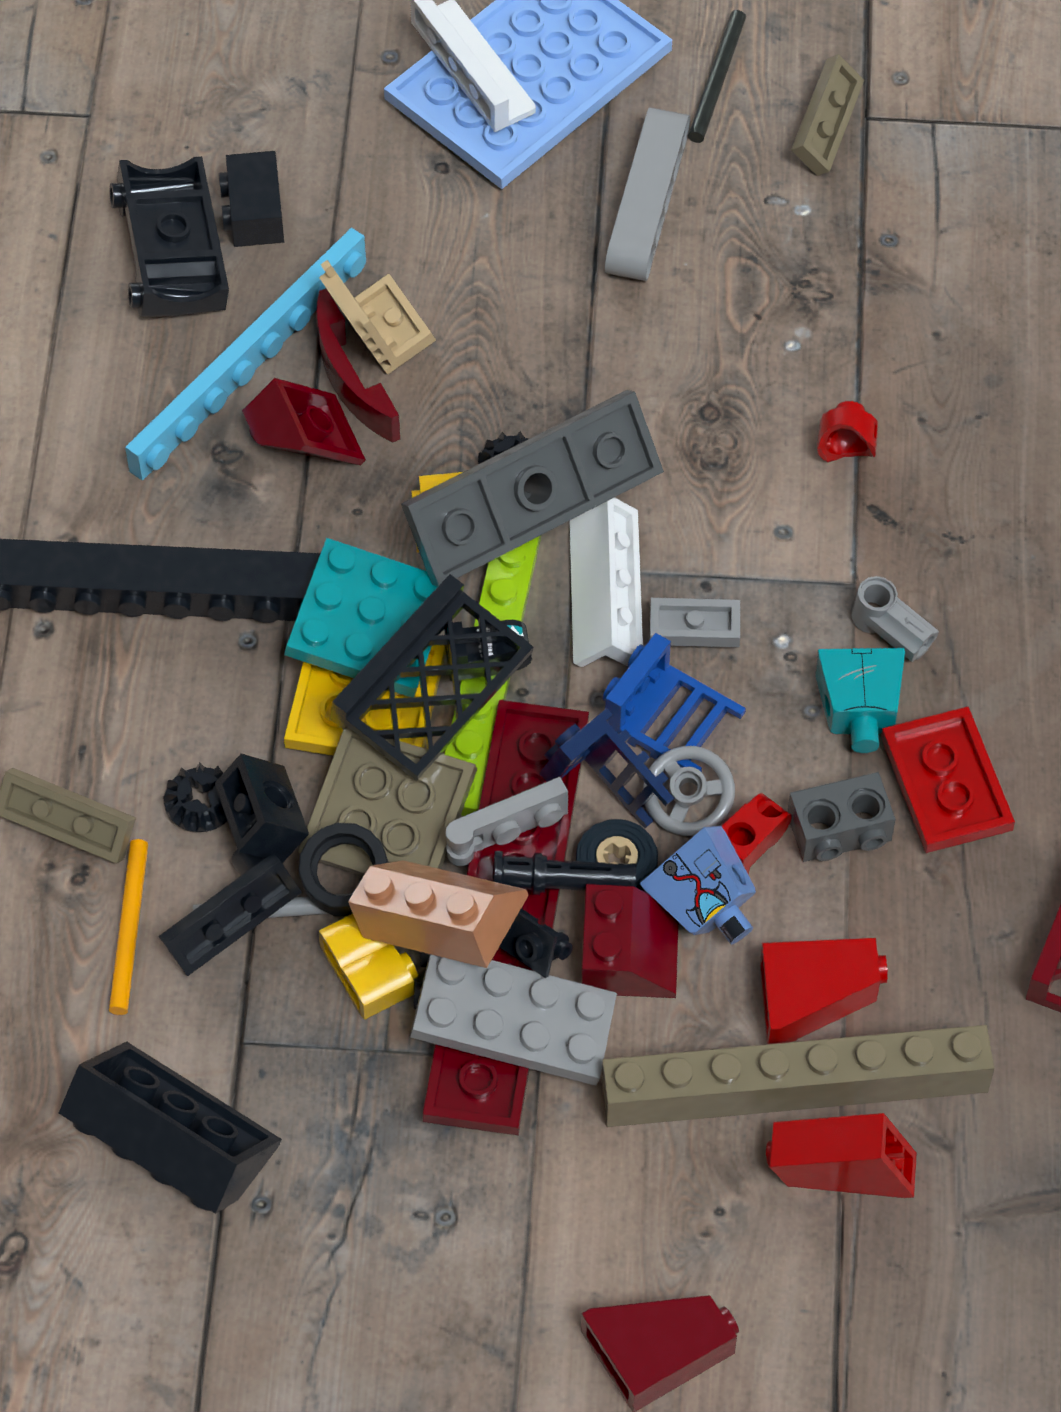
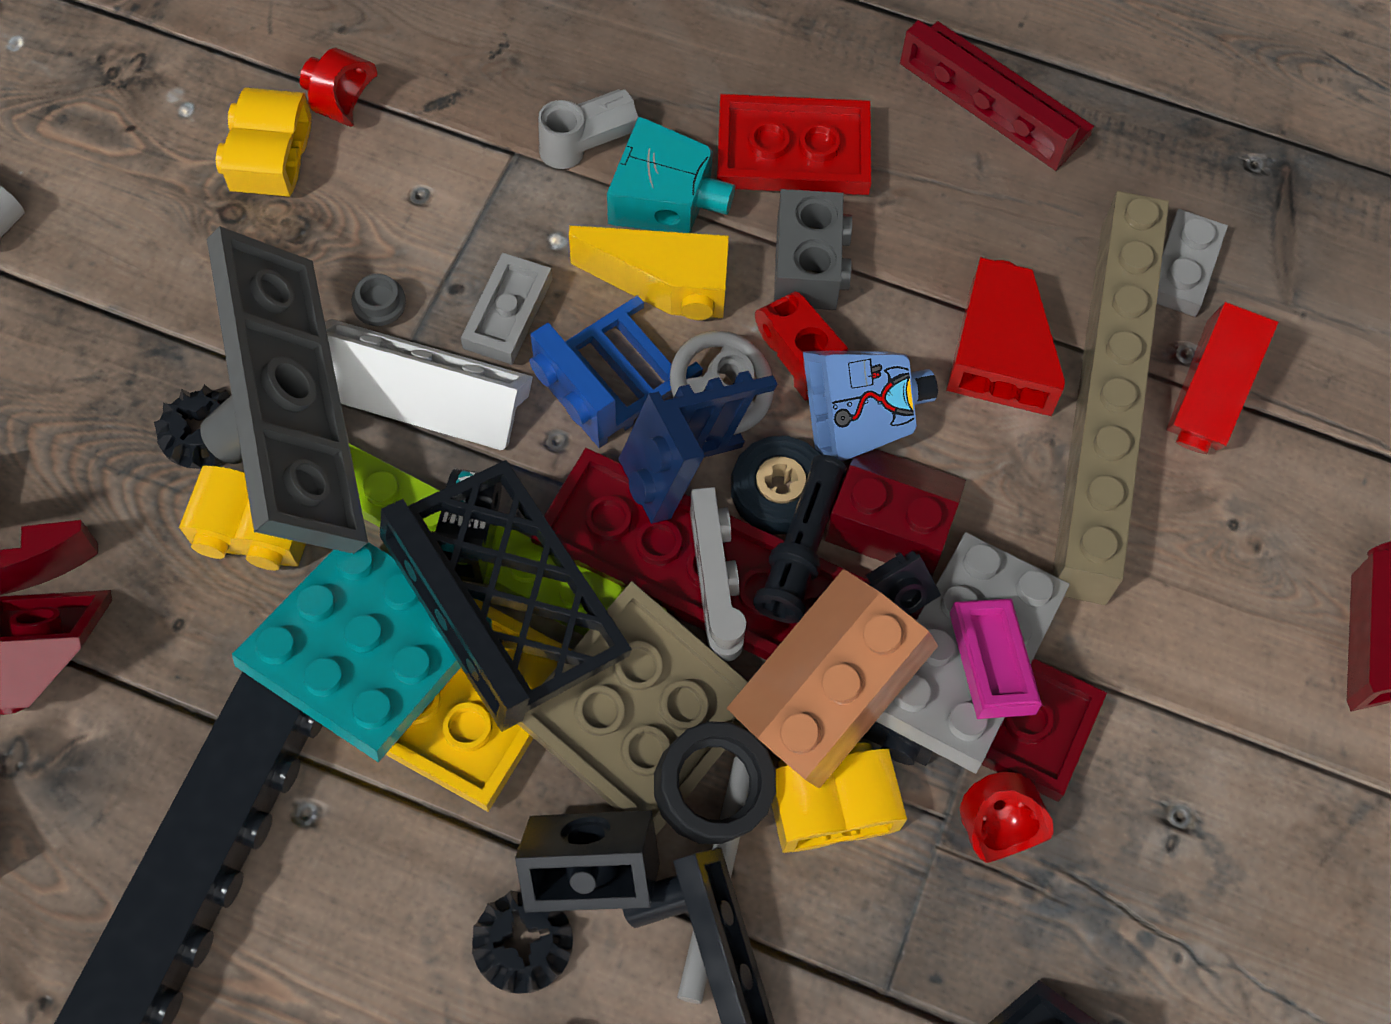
camera: 75 degrees left, 5 degrees up
(391, 1078) = (1004, 816): none -> red piece
(499, 1018) = (995, 659): none -> dark pink tile
(667, 535) = (378, 300): none -> dark grey plate
(774, 406) = (265, 141): none -> yellow brick
(777, 729) = (665, 269): none -> yellow slope
(966, 1121) = (1189, 261): none -> light grey plate

